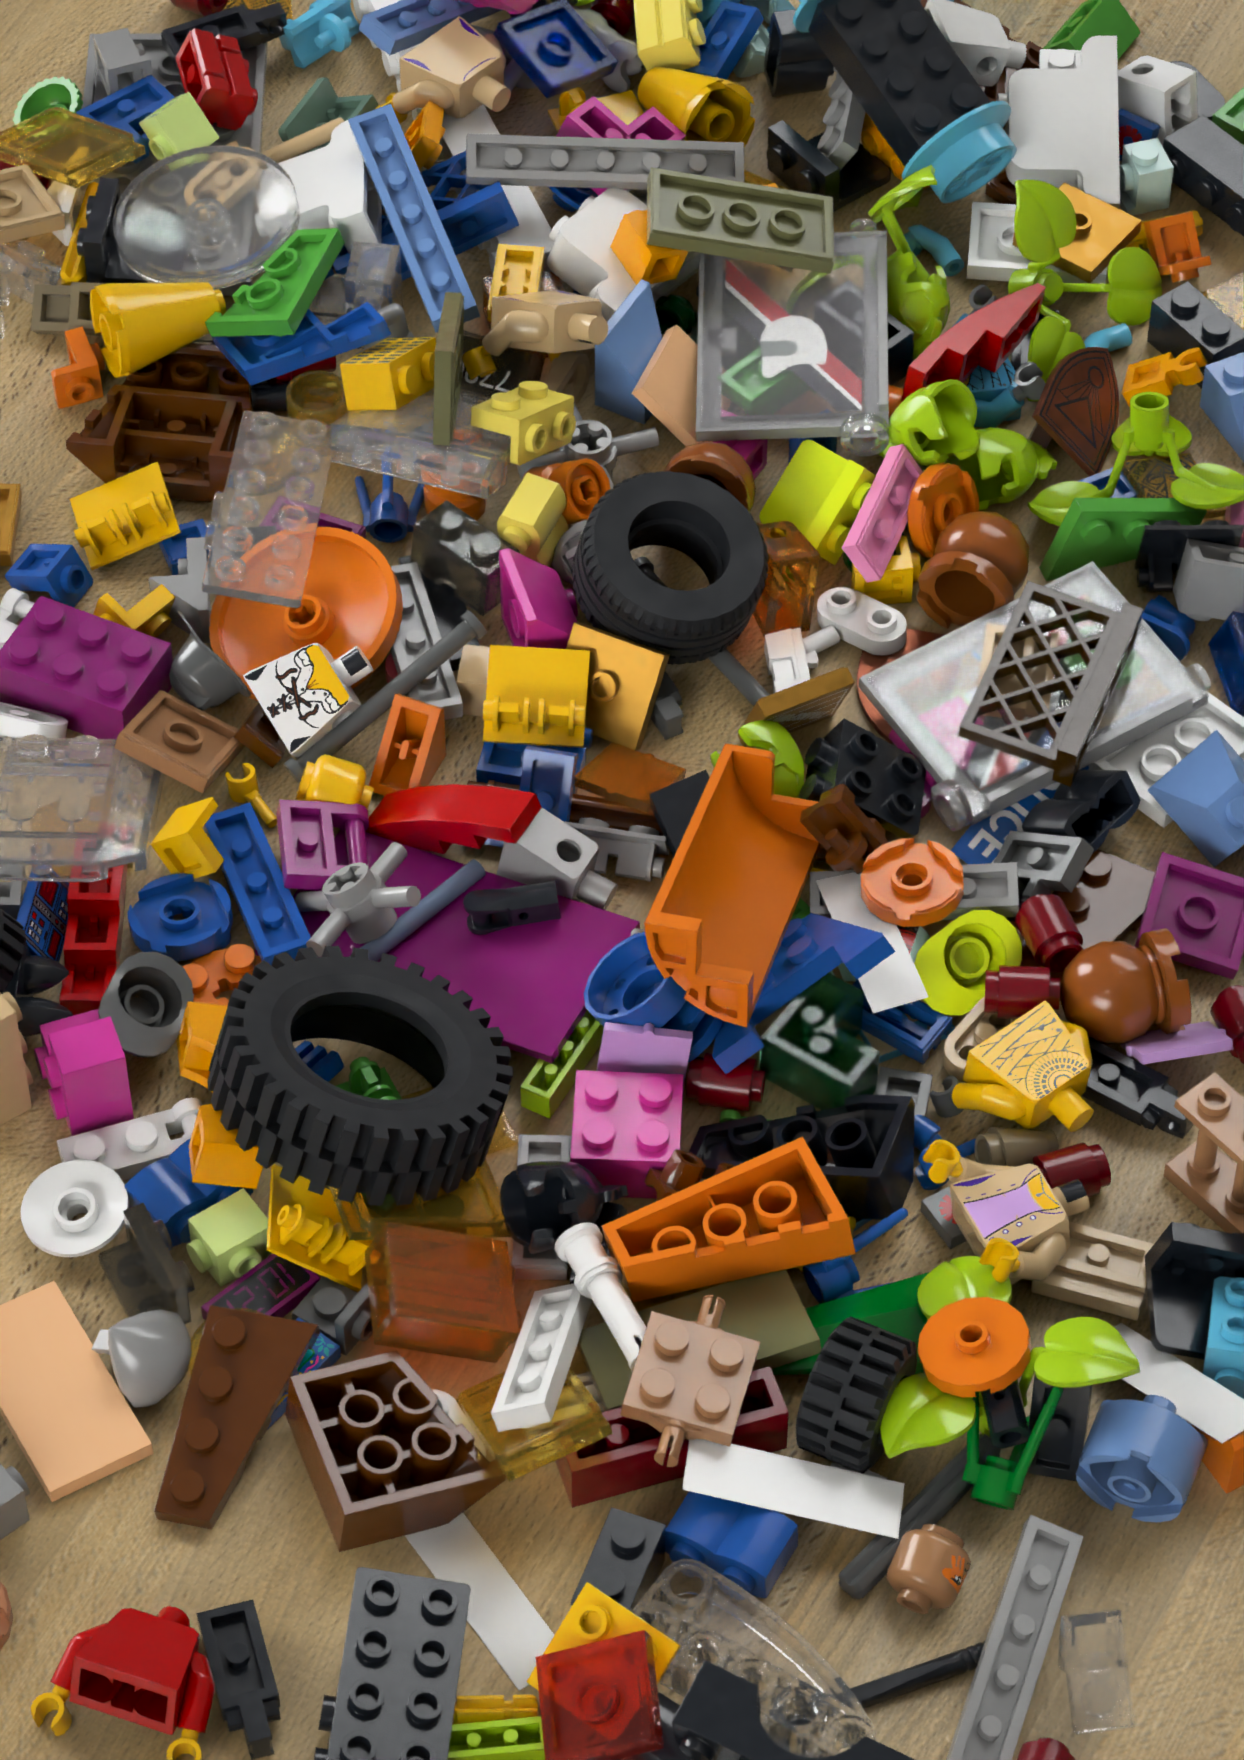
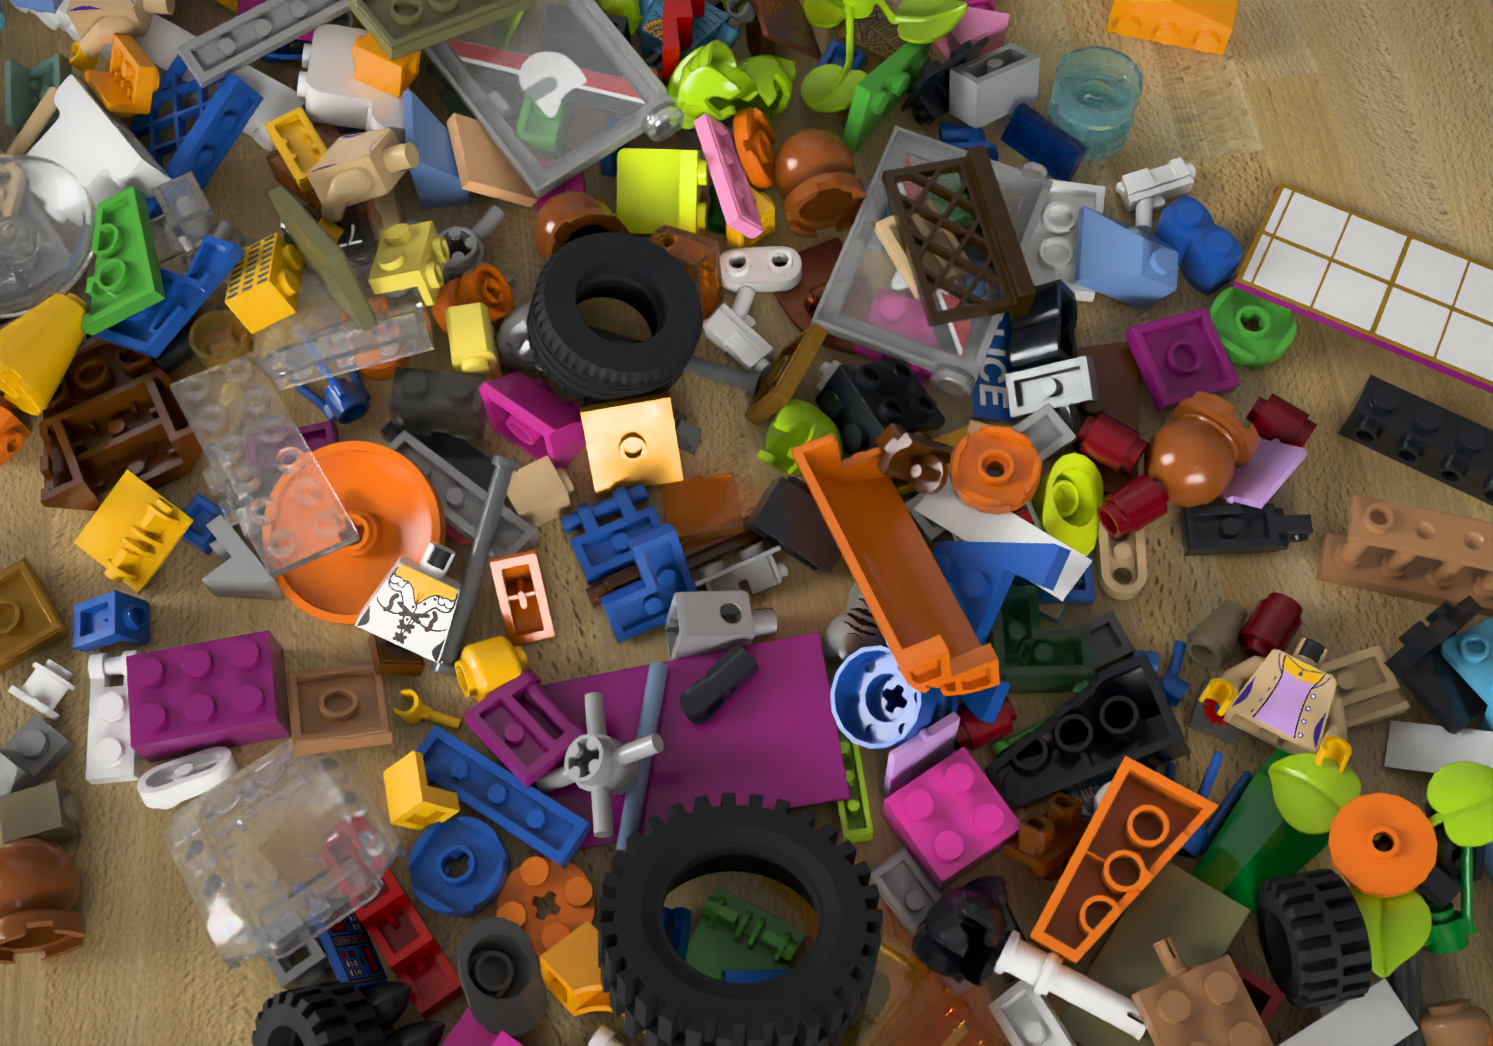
camera: 35 degrees left, 15 degrees up
(147, 616) = (224, 613): yellow bracket -> none
(202, 675) = (305, 637): dark grey piece -> none
(411, 211) = (180, 138): medium blue plate -> none
(453, 814) = (613, 637): red slope -> none
(536, 696) = (592, 489): yellow hinge -> none
(675, 311) = (433, 100): dark green plate -> none
(1025, 1073) = (1191, 571): yellow torso -> none

